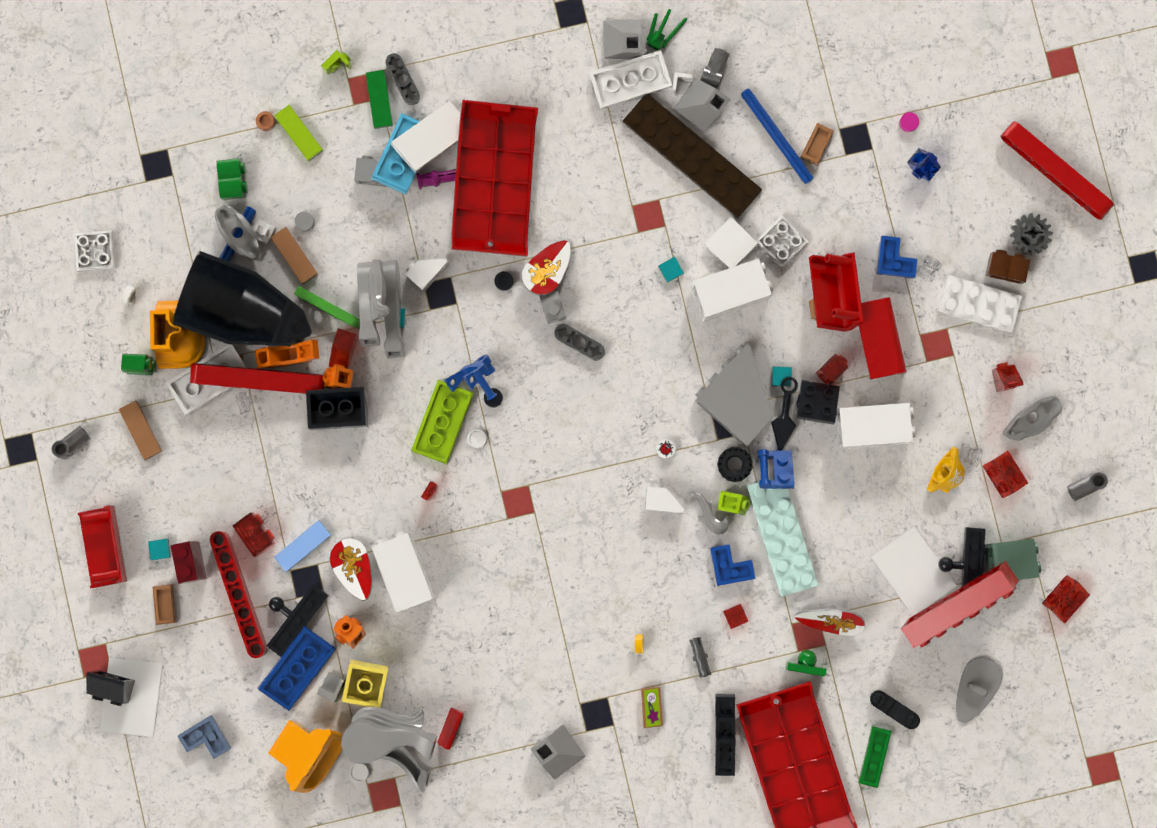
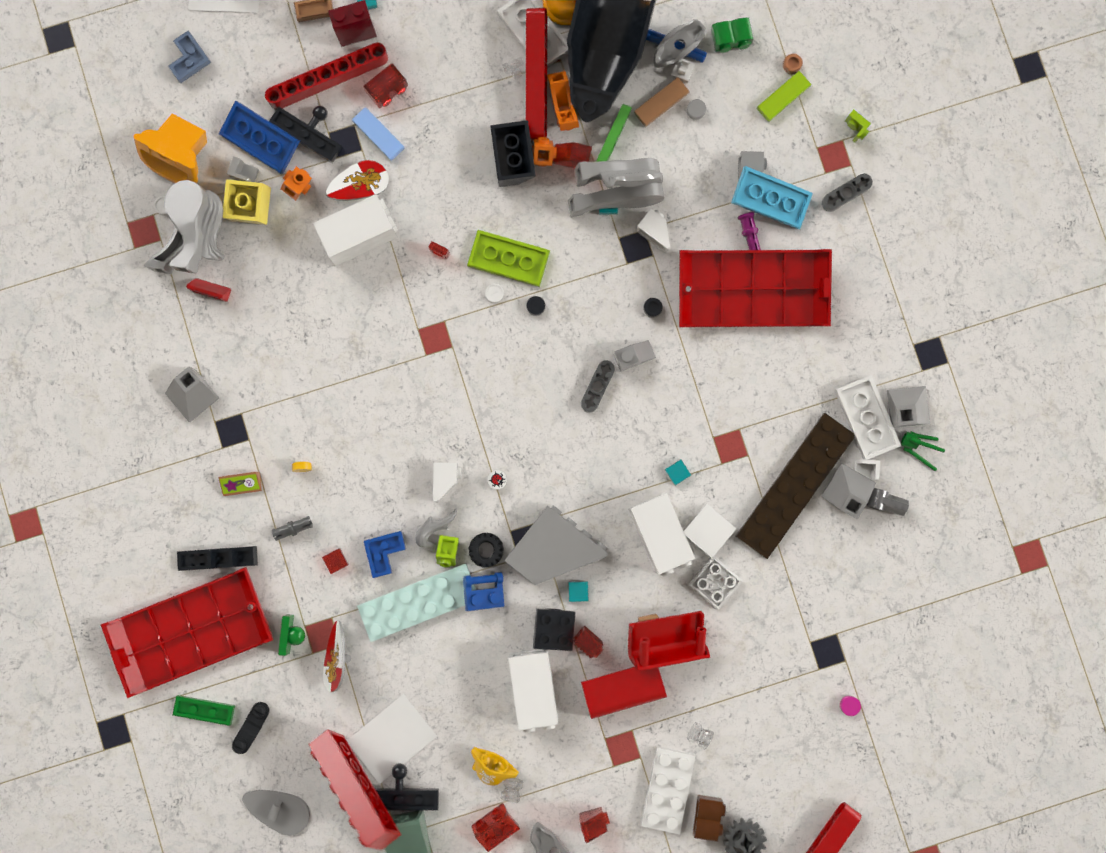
camera: 80 degrees right, 0 degrees up
(379, 99) = (824, 171): green tile -> none
(429, 137) = (790, 221): white tile -> none
(480, 367) = (558, 283): blue piece -> none
(547, 268) = (668, 347): shield -> none
(777, 136) = (823, 570): blue axle -> none
(783, 425) = (529, 596): black piece -> none
(817, 144) = (819, 612): medium nougat tile -> none
(889, 261) = (702, 695): blue plate -> none
(924, 164) = (807, 724): clear blue brick -> none

